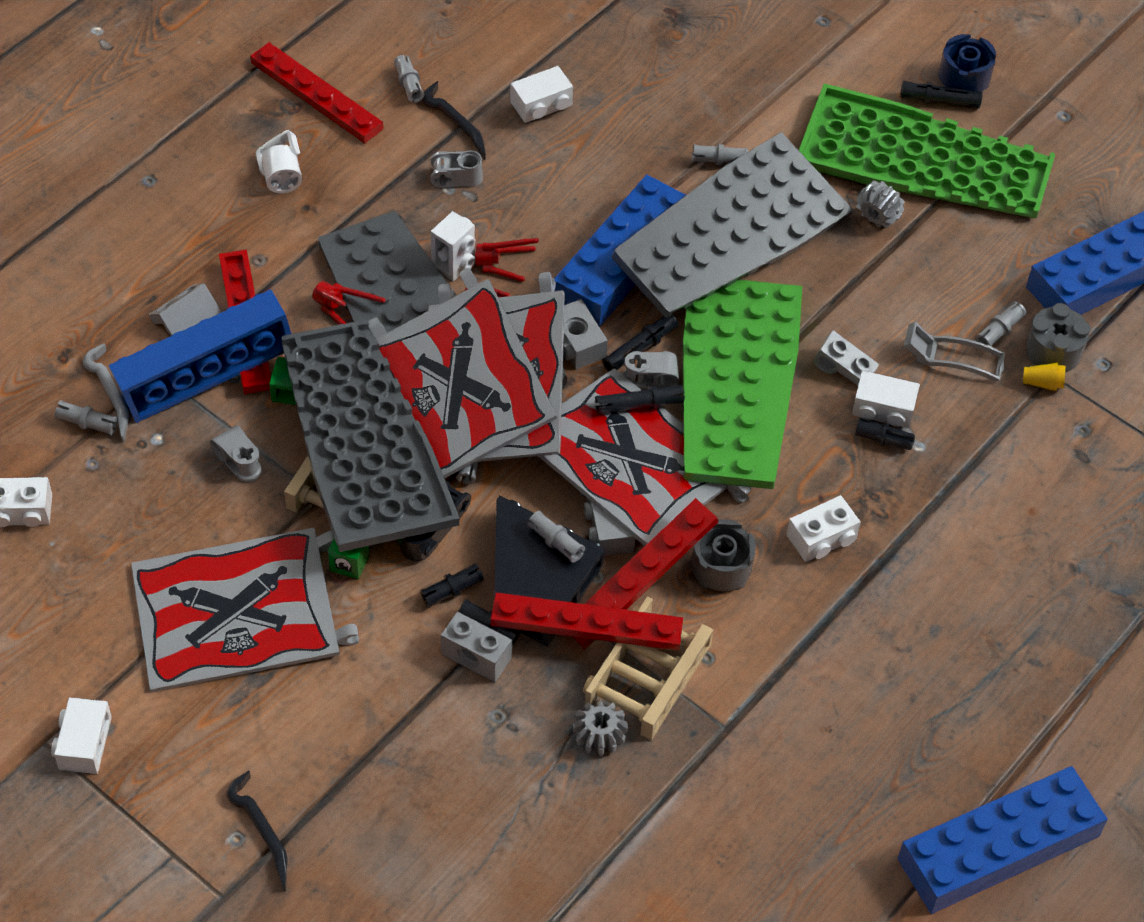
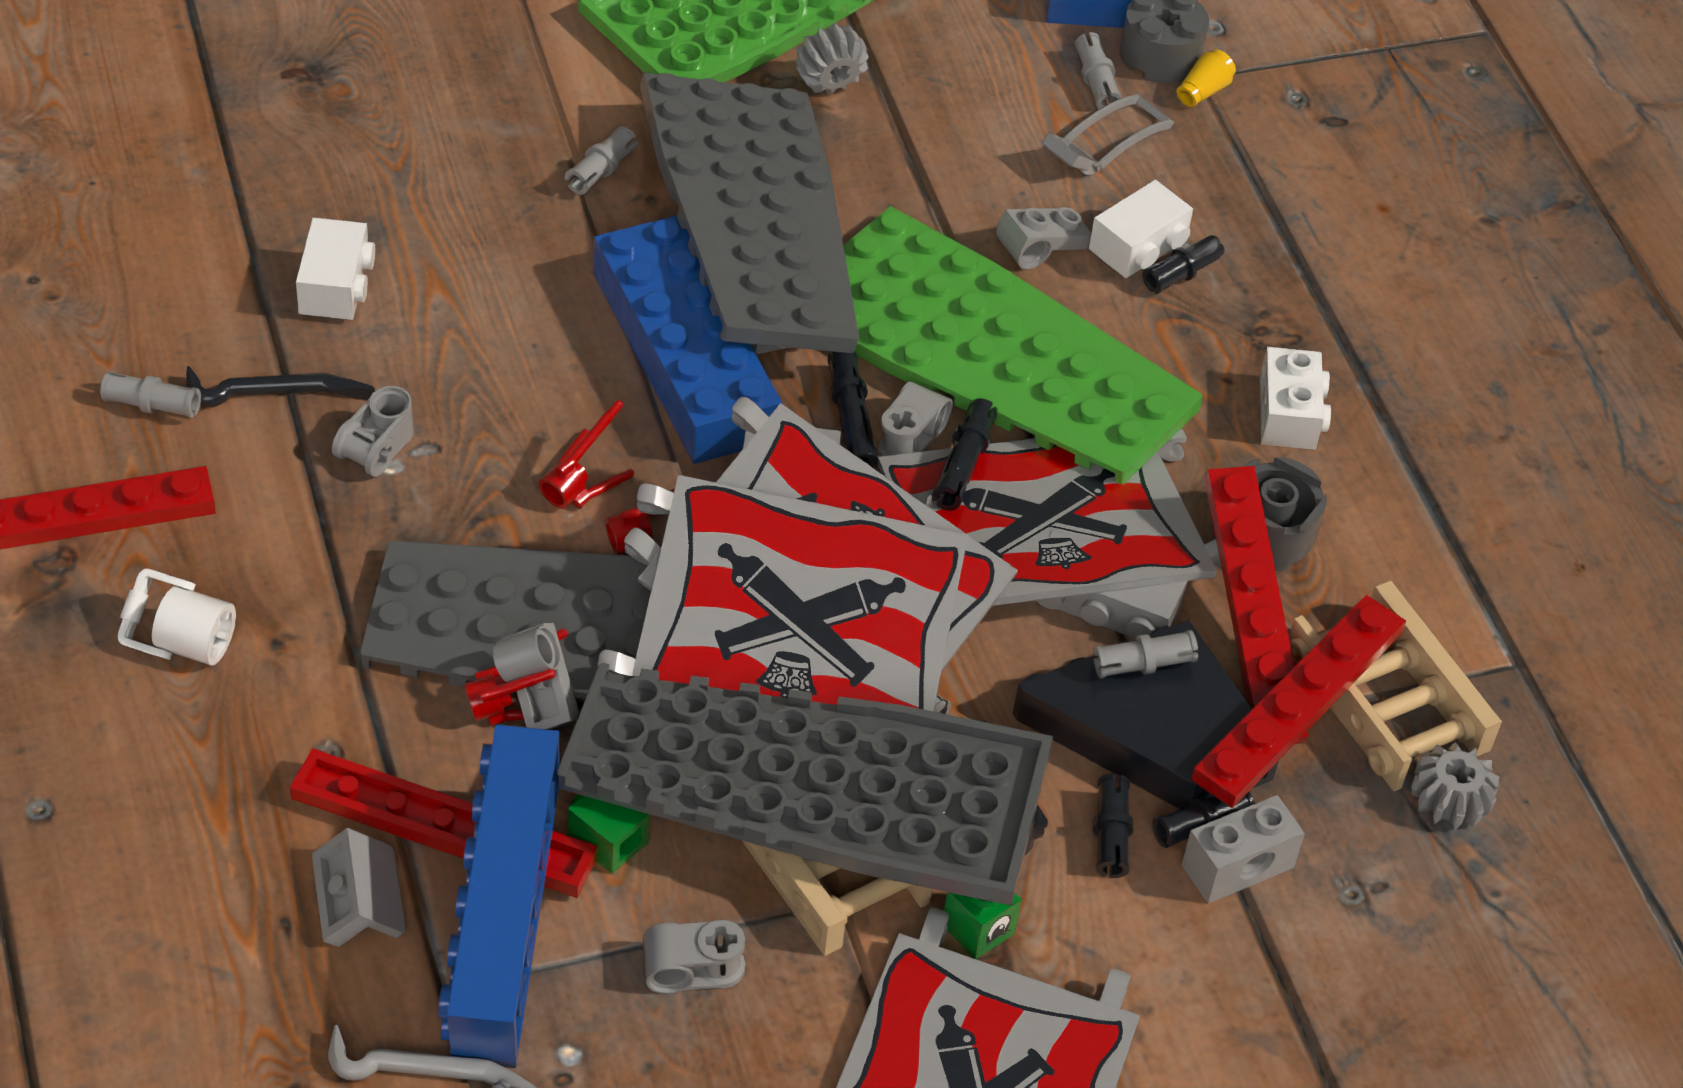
camera: 60 degrees left, 5 degrees down
(354, 300) = (530, 652): none -> light grey plate
(453, 245) = (536, 499): white brick -> none

